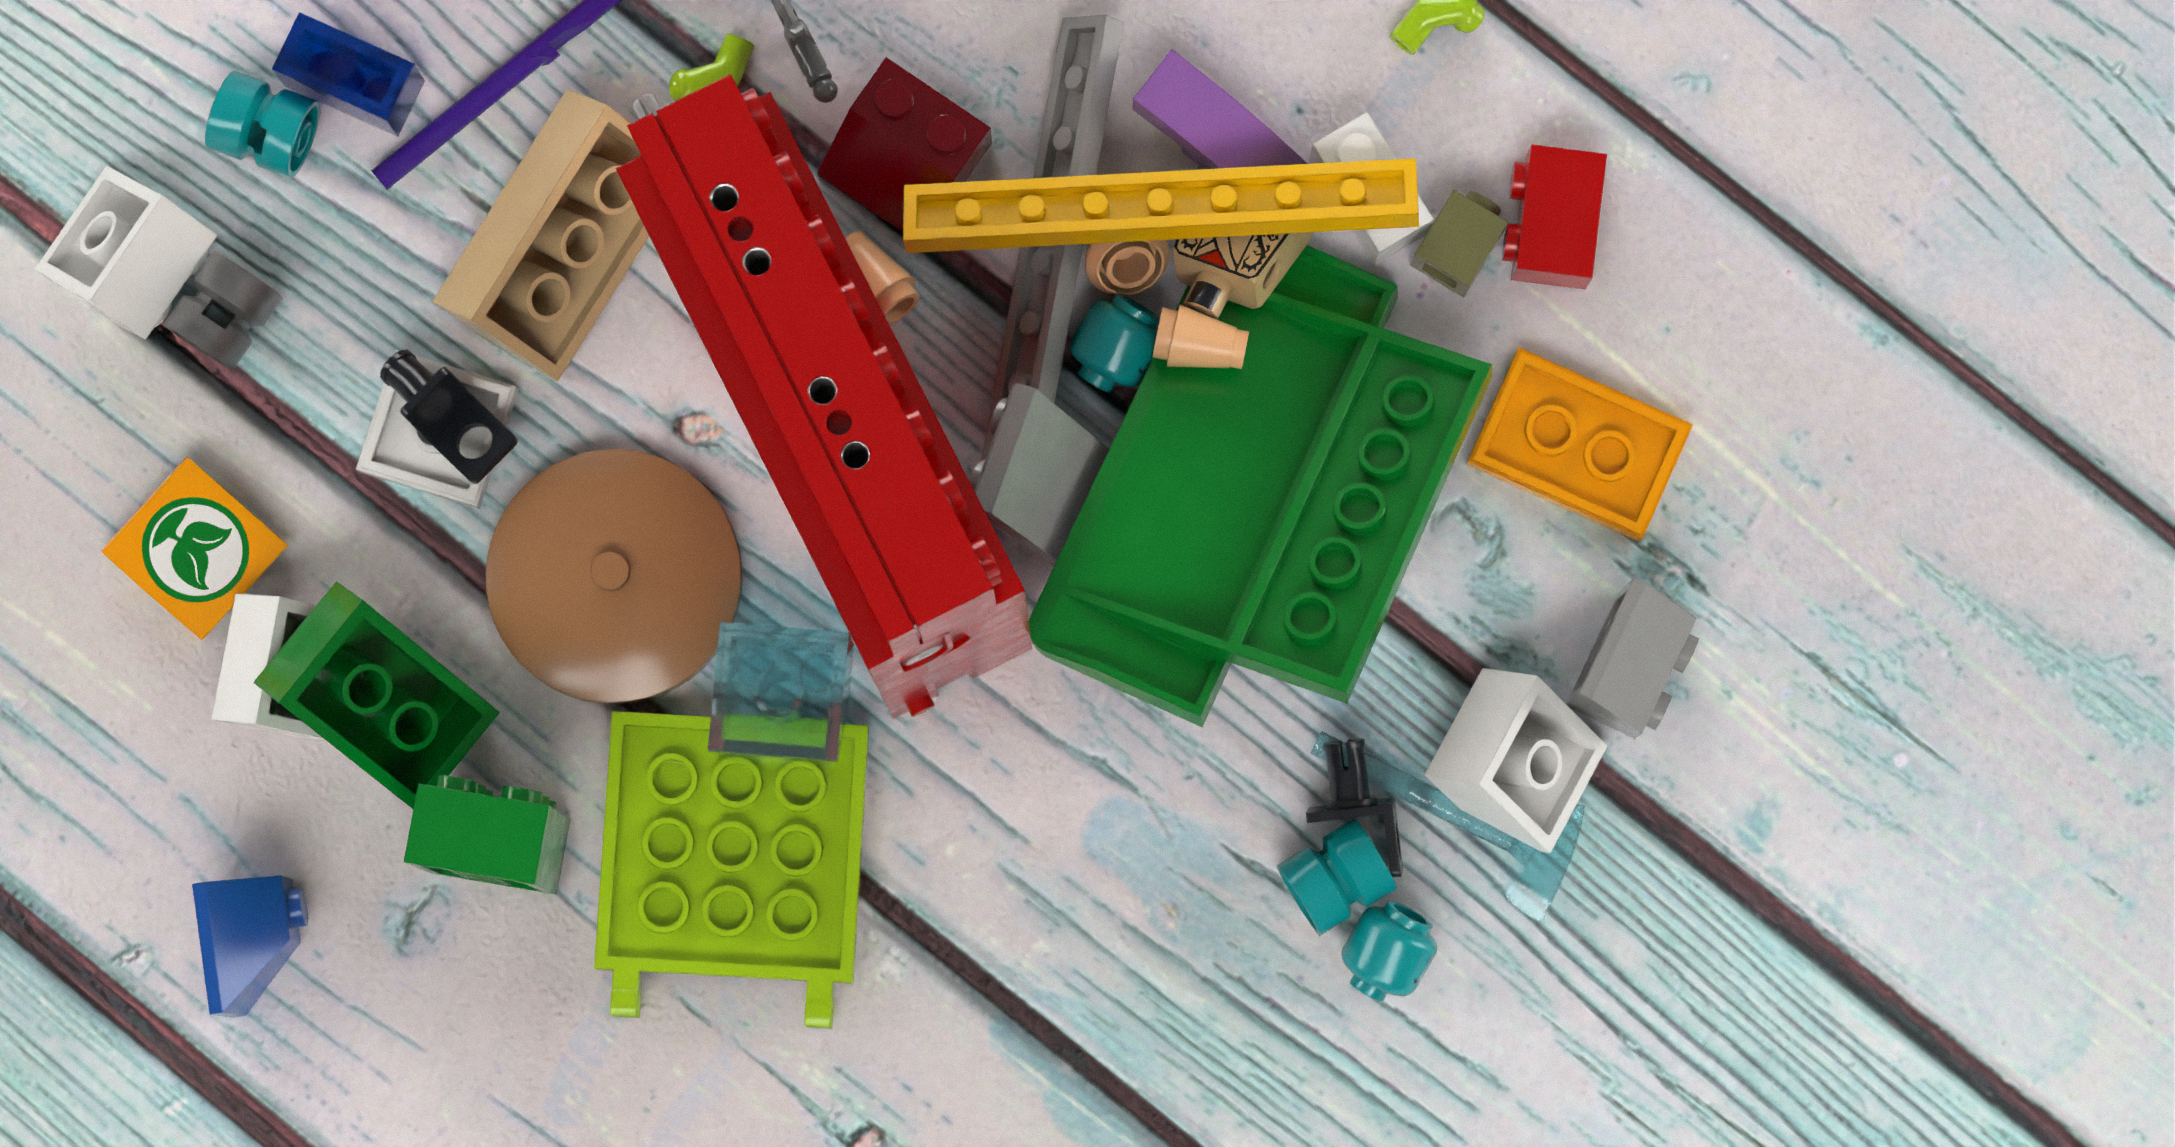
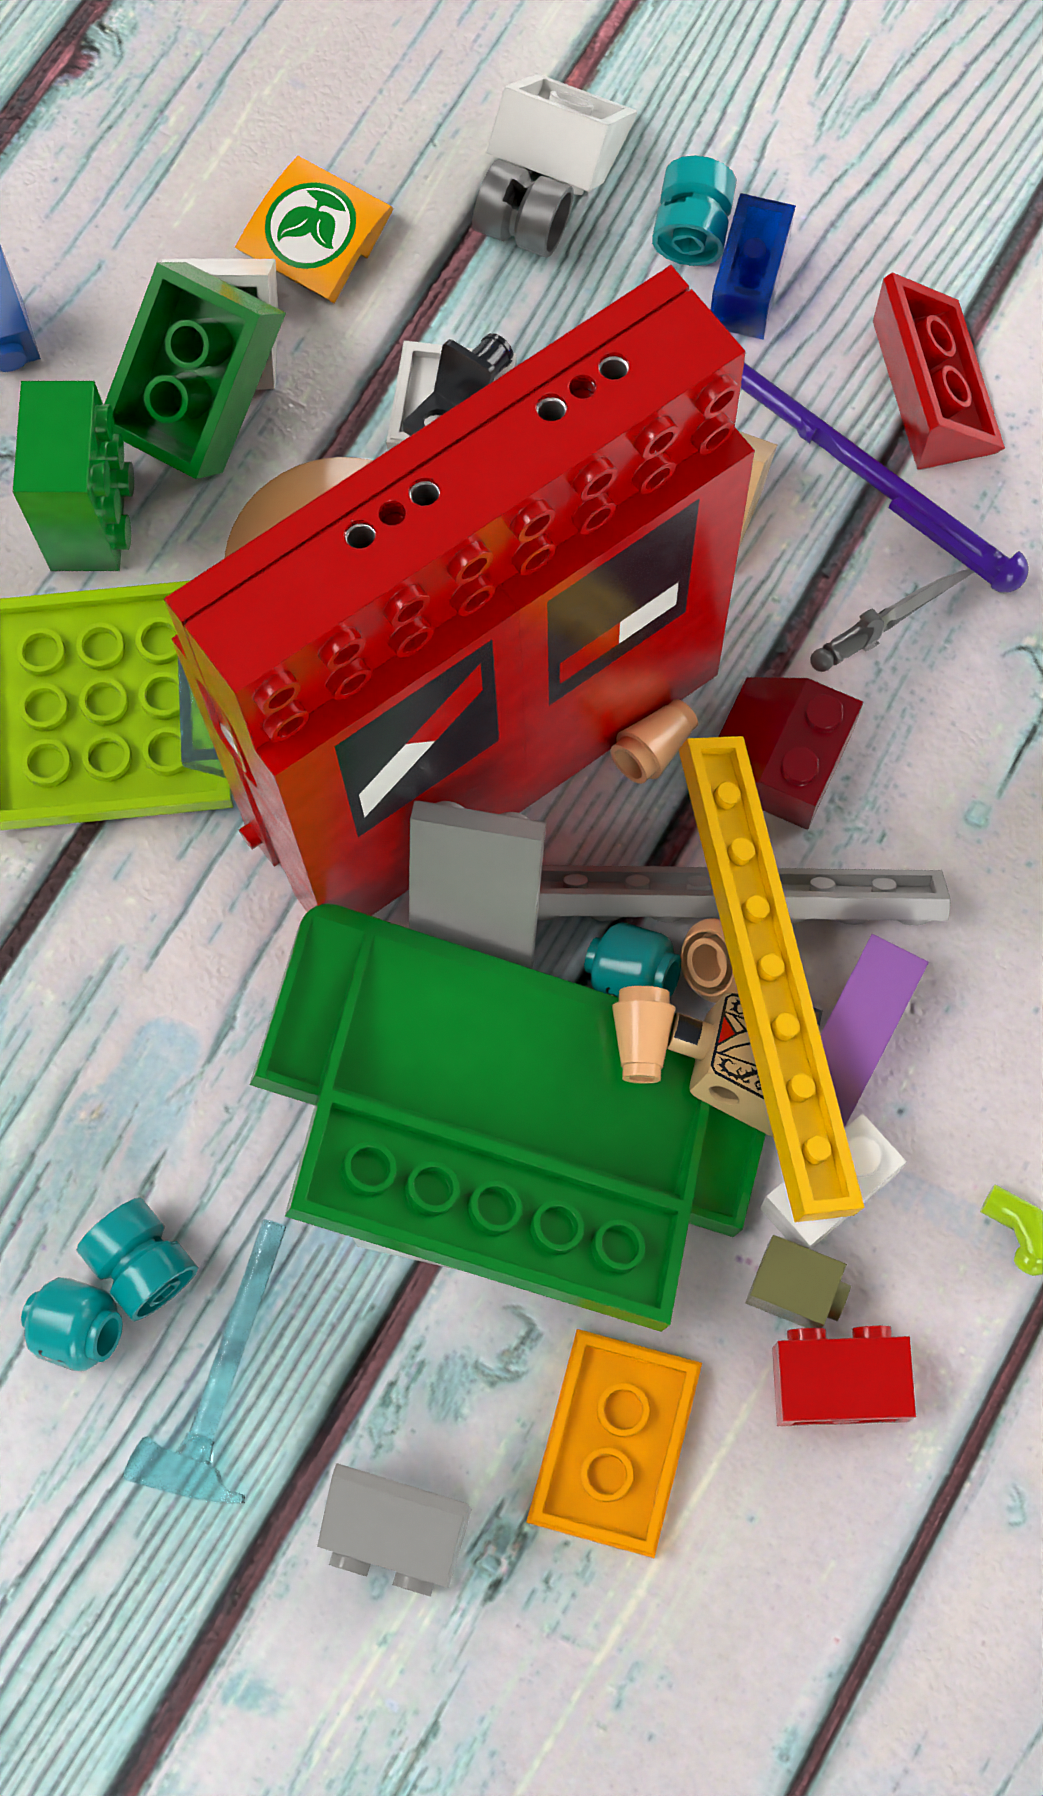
camera: 85 degrees right, 10 degrees down
(731, 59) = (813, 574): lime arm -> none
(1352, 796) = (213, 1265): black bracket -> none
(1516, 757) = (277, 1422): white slope -> none

